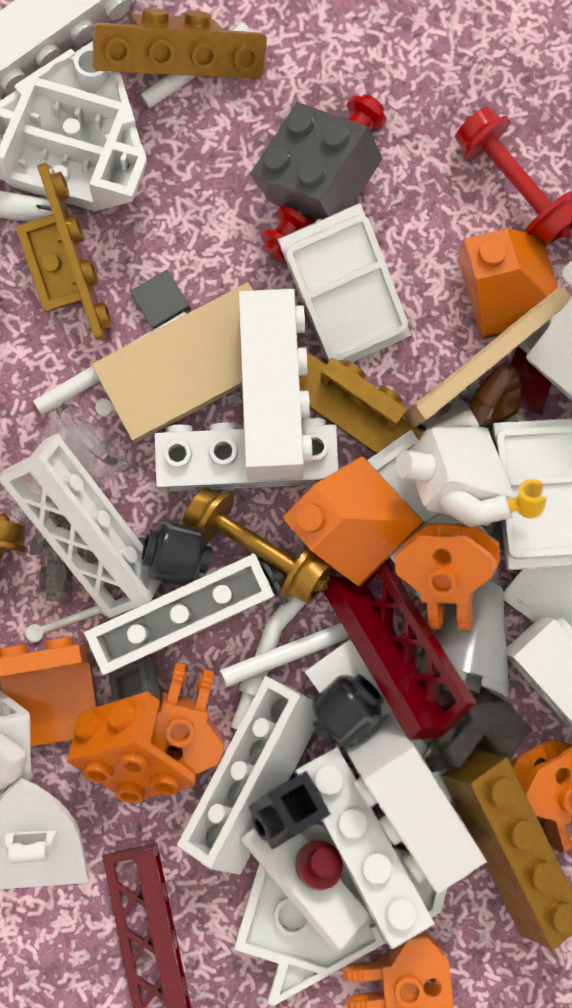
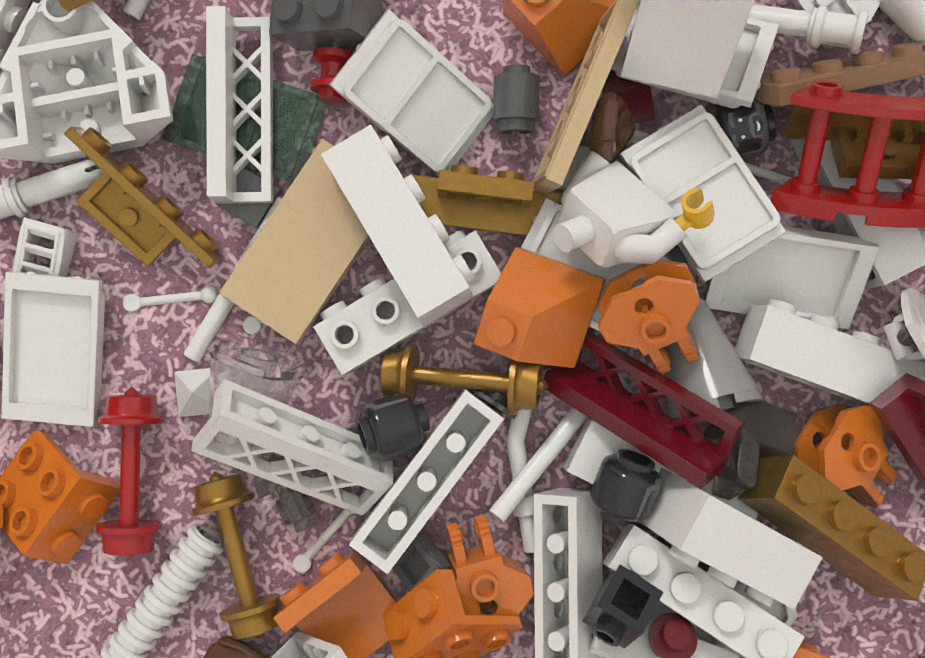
camera: 30 degrees left, 5 degrees up
(15, 336) = (133, 302): none -> white hinge
(22, 436) = (192, 392): none -> white slope
(177, 214) = (221, 107): none -> white fence
(193, 233) = (295, 120): none -> clear green piece
(430, 335) = (516, 99): none -> dark grey brick

